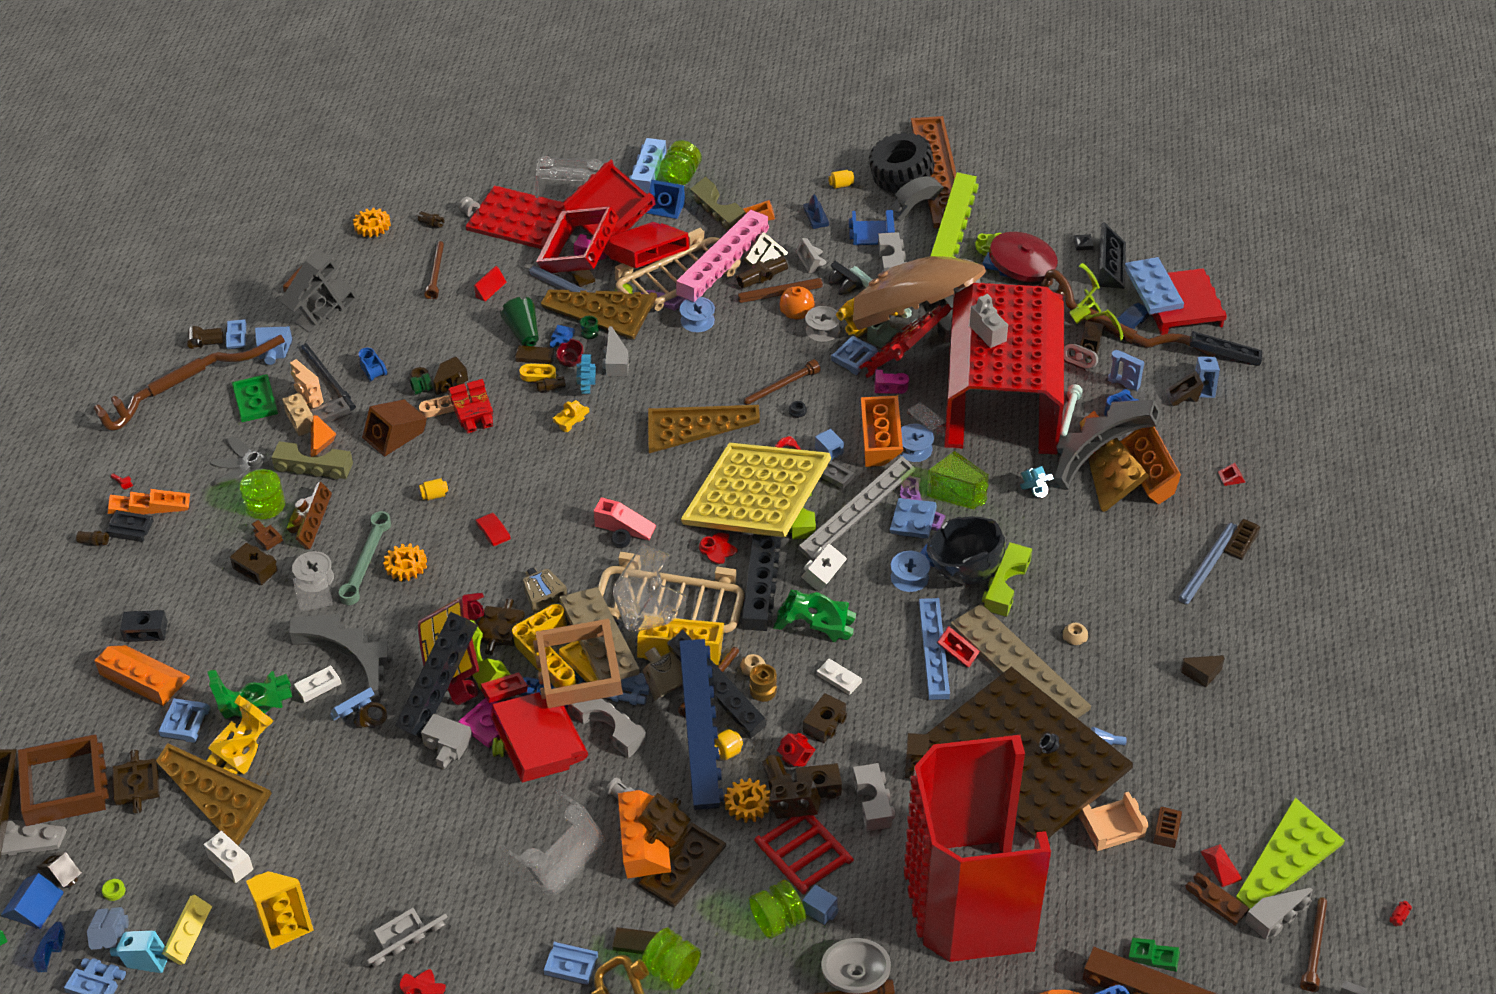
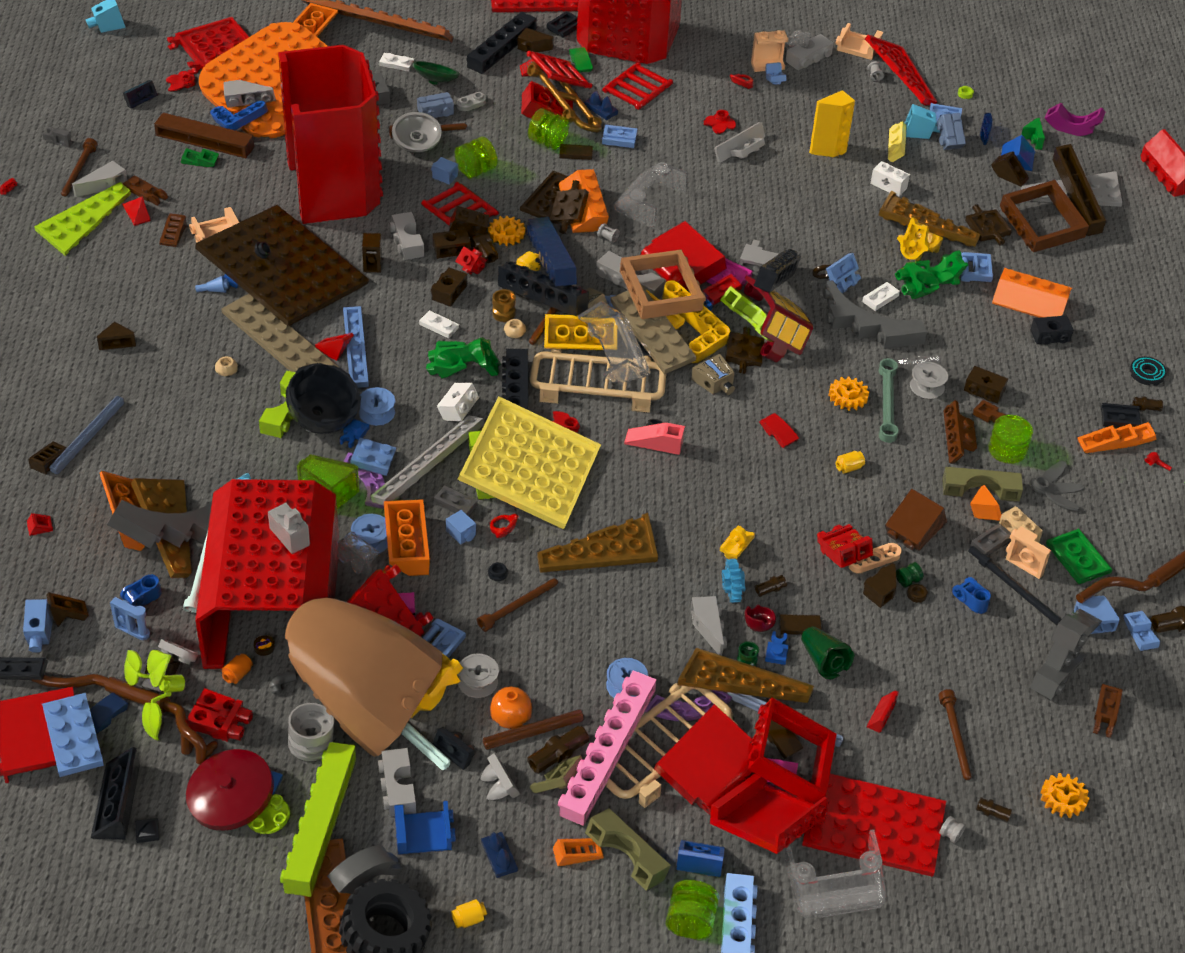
camera: 170 degrees right, 0 degrees up
(75, 583) = (1155, 377): none -> black tile
(113, 889) = (964, 166): lime tile -> none
(537, 372) = (788, 598): yellow plate -> none

